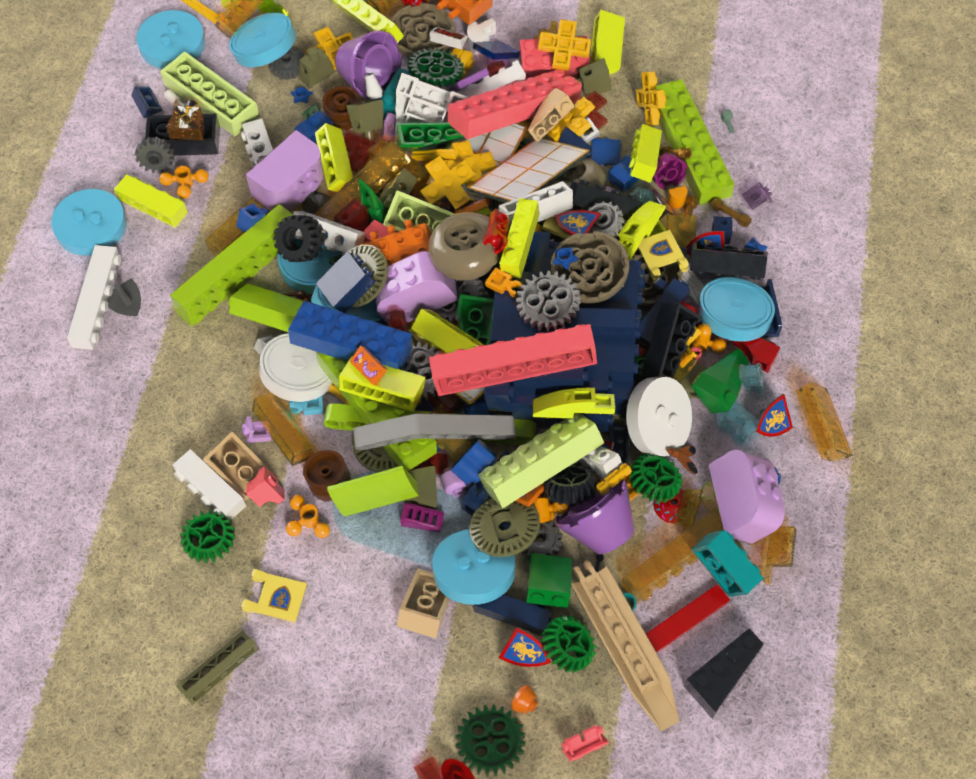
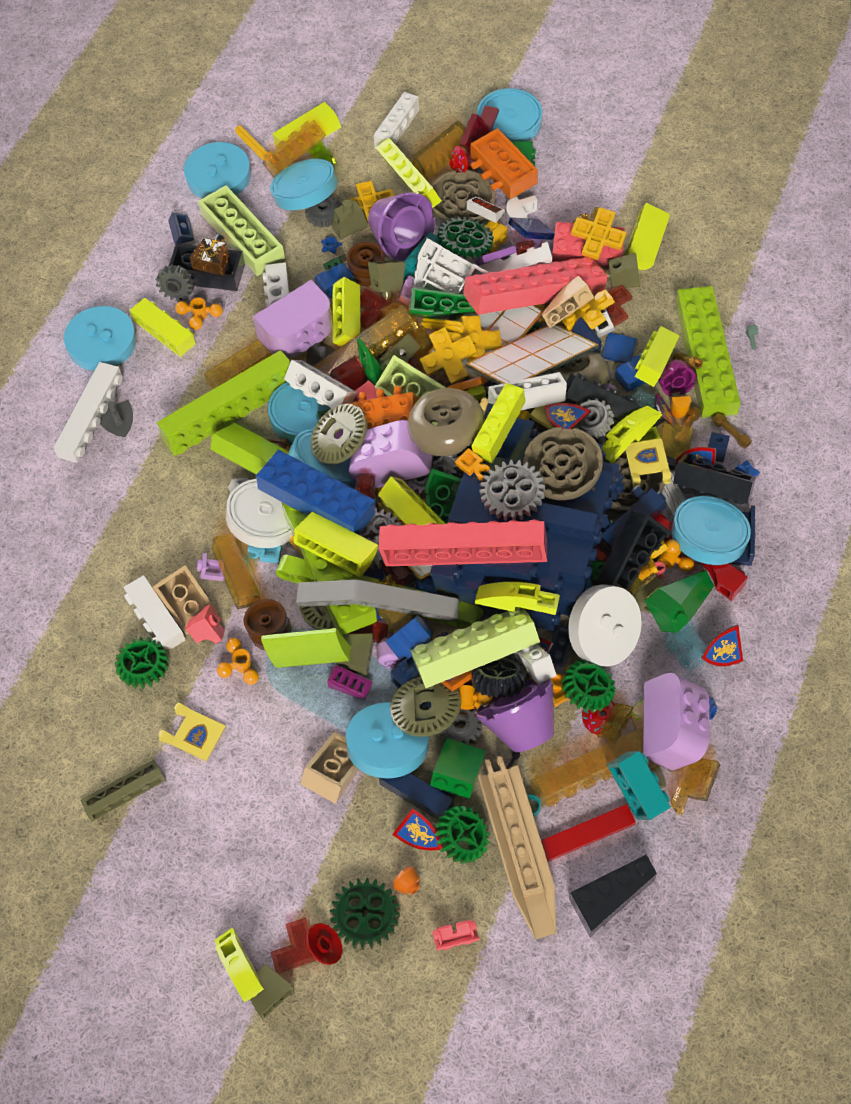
camera: 15 degrees right, 0 degrees up
(173, 99) = (207, 231): white axle -> none
(250, 216) = (249, 357): blue brick -> none
(286, 238) = (302, 387): black tyre -> none
(346, 282) = (323, 438): brick -> none
(368, 365) = (324, 524): orange tile -> none
(373, 88) = (399, 248): white cone -> none
(497, 231) = (477, 412): red plate -> none
(564, 252) = (539, 444): blue plate -> none
(613, 479) = (540, 679): yellow axle -> none
(650, 98) = (675, 301): yellow plate -> none
(682, 455) = (621, 669): dark orange piece -> none
(752, 377) = (711, 602): clear light blue piece -> none
(757, 195) = (763, 417): clear purple bracket -> none
(823, 422) = (775, 661): clear yellow brick -> none

